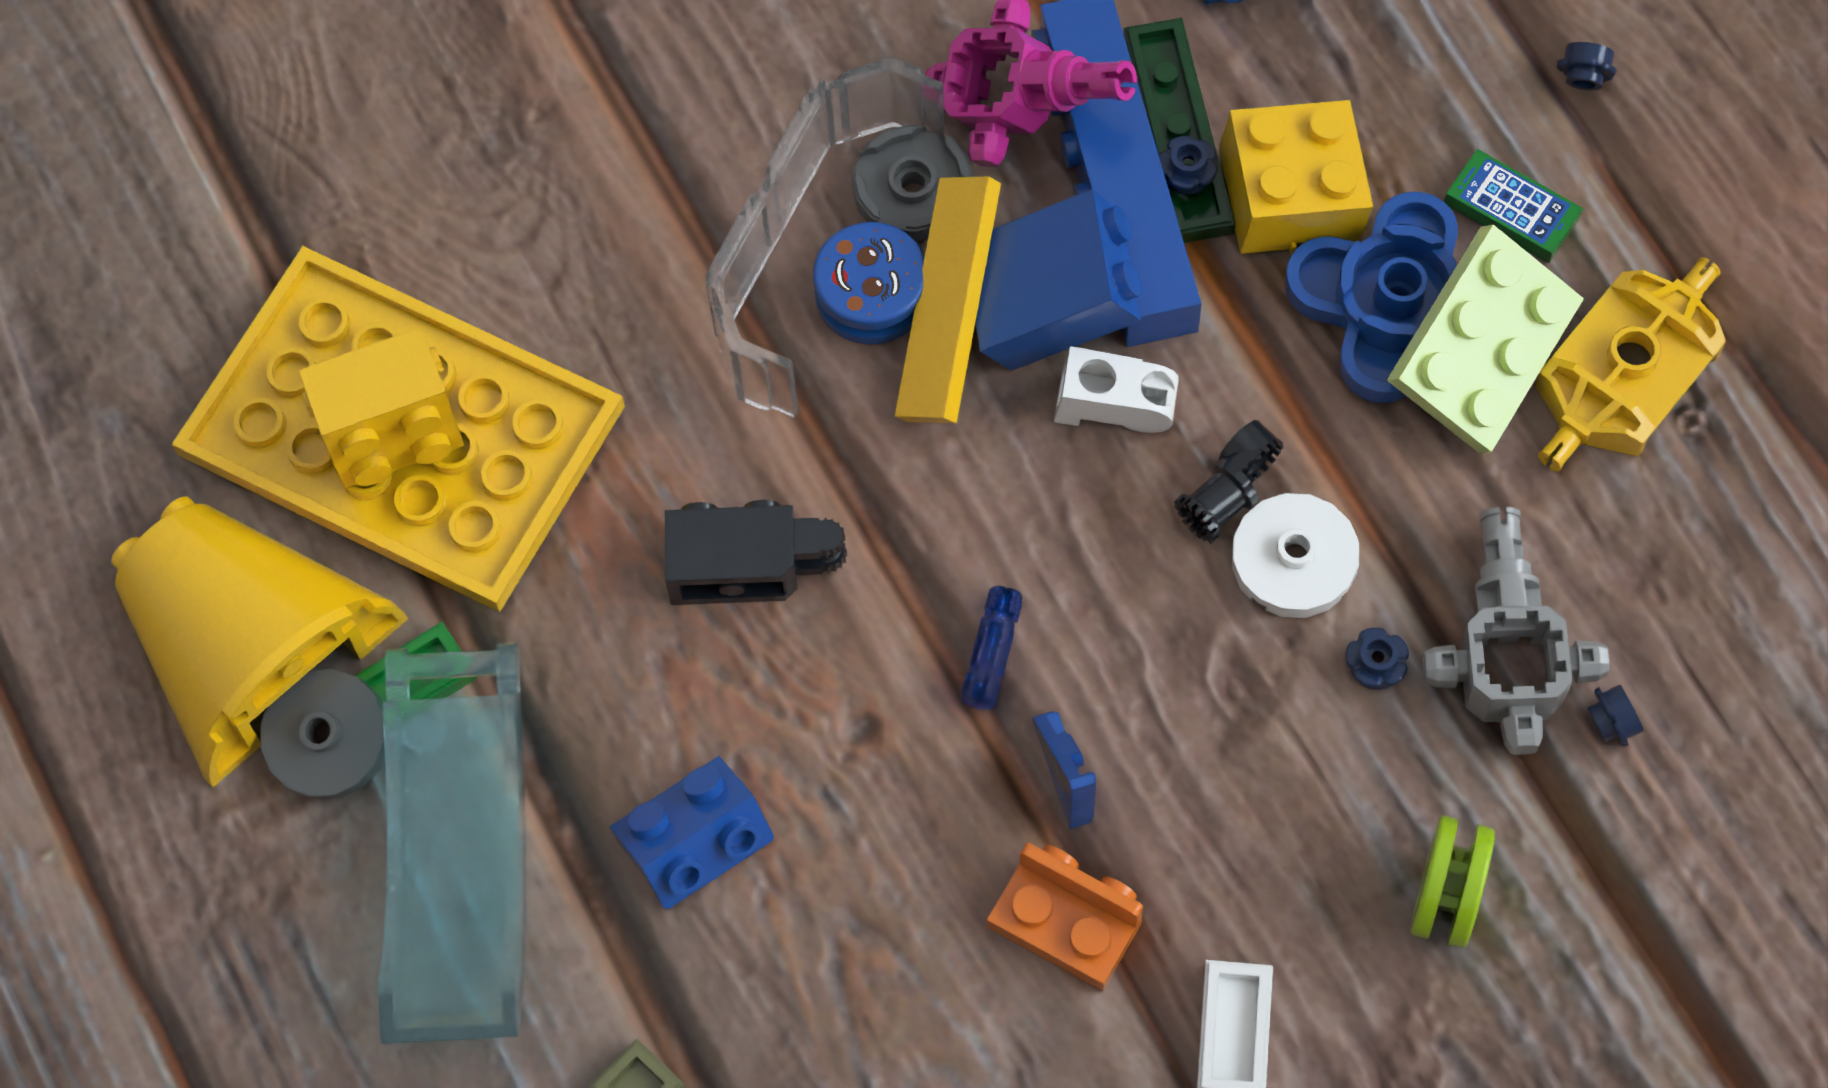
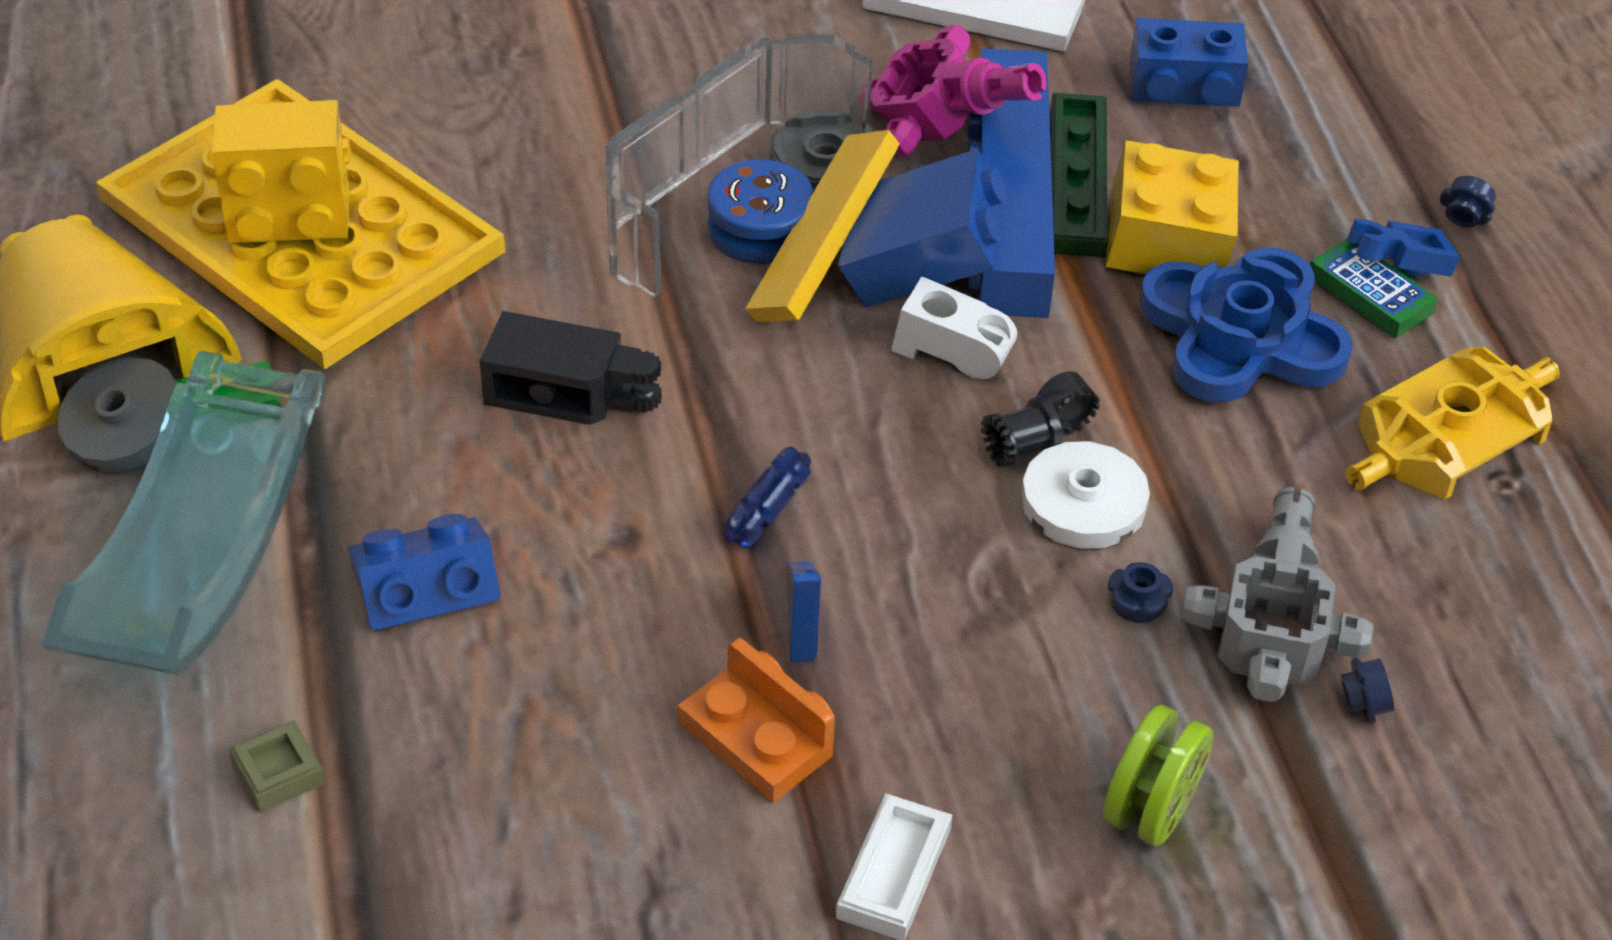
camera: 10 degrees right, 20 degrees down
(1185, 178) = (1077, 186): dark blue plate -> none
(1485, 339) = (1316, 360): yellowish green plate -> none
(1544, 146) = (1412, 247): none -> blue plate

